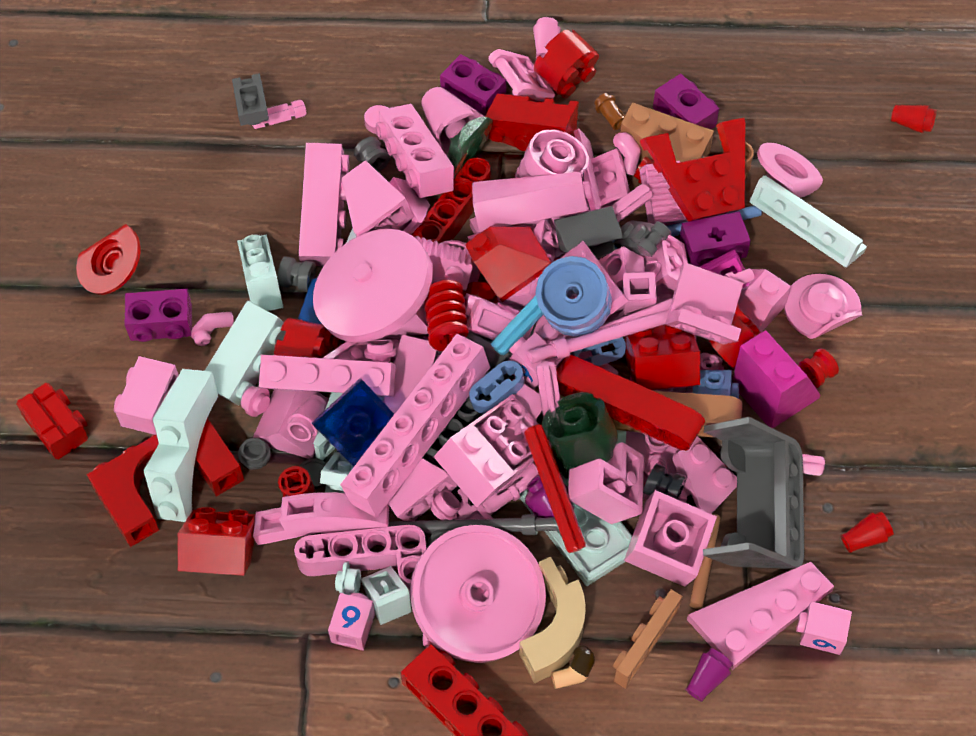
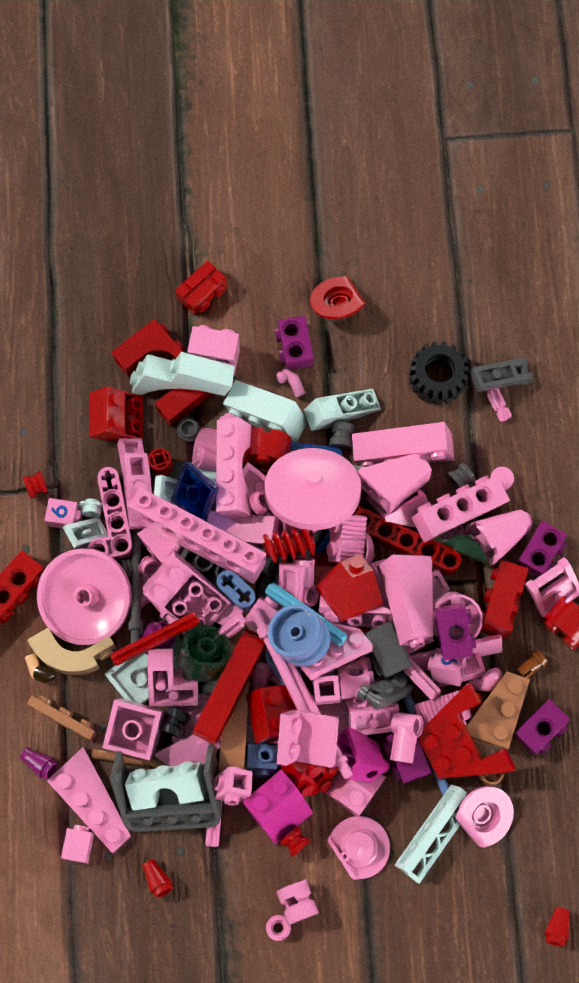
camera: 85 degrees right, 15 degrees up
(229, 144) = (444, 356): none -> black tyre
(301, 655) = (35, 484): none -> red wheel
(576, 150) = (458, 646): none -> magenta brick
(611, 178) = (446, 671): none -> bright pink brick
(691, 223) = (406, 730): none -> bright pink piece
(744, 472) = (184, 779): none -> light aqua arch
(760, 400) = (233, 785): none -> bright pink brick
(893, 369) = (297, 911): none -> bright pink wheel
(926, 391) = (270, 928): none -> bright pink plate

